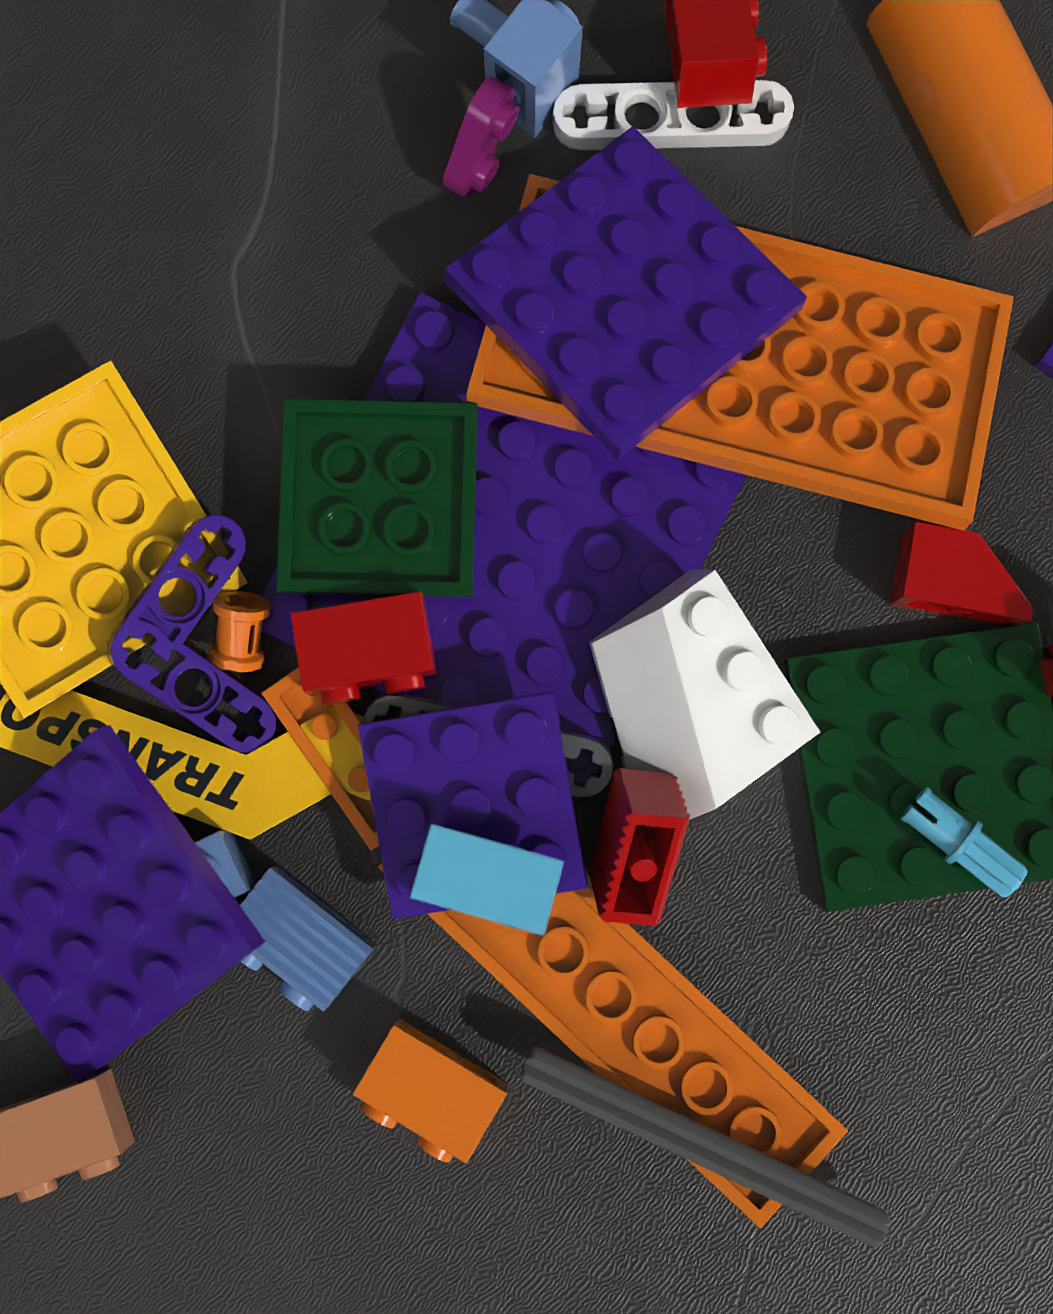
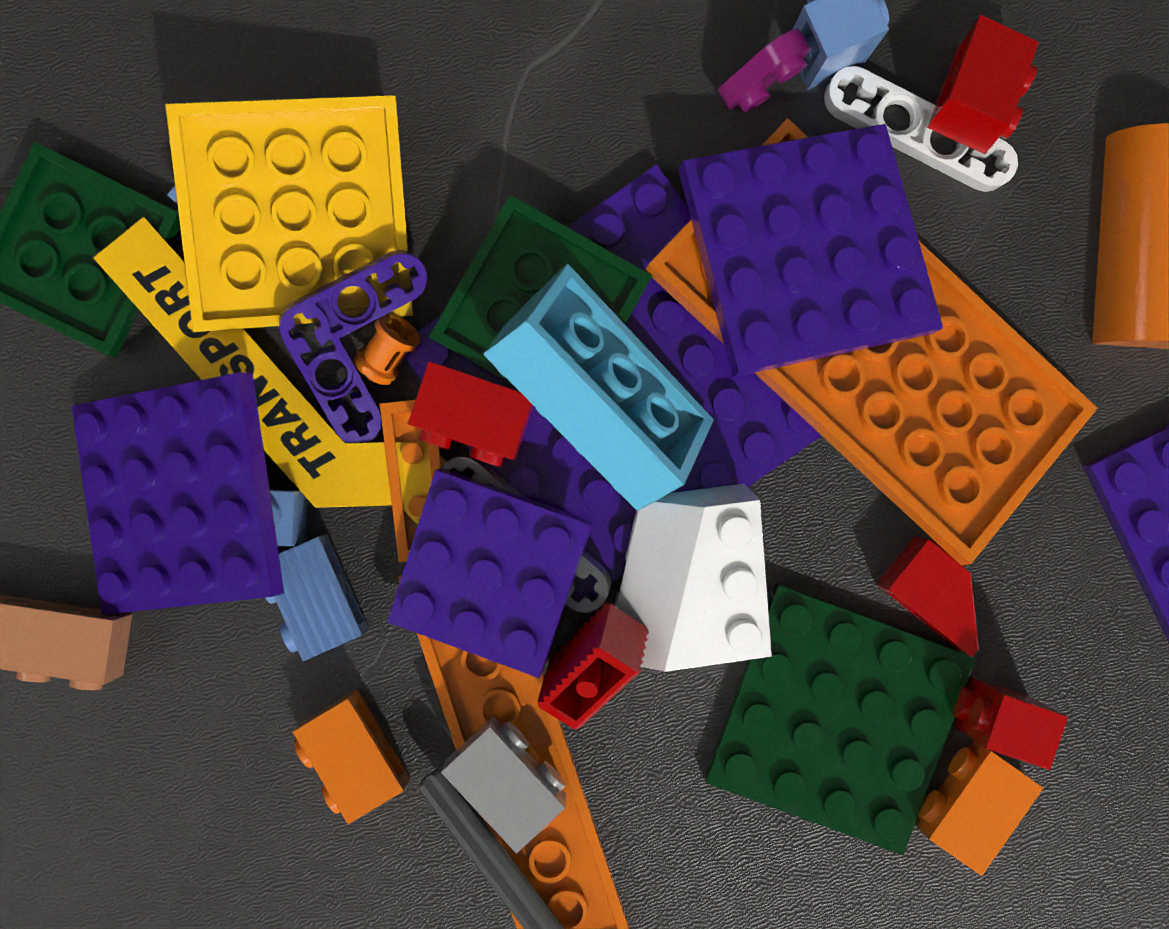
camera: 25 degrees right, 5 degrees up
(487, 879) = (467, 639): medium azure hinge -> none
(488, 546) = (602, 389): none -> medium azure slope
(613, 1022) = (506, 782): none -> light grey brick
(966, 844) = (831, 792): medium azure axle -> none

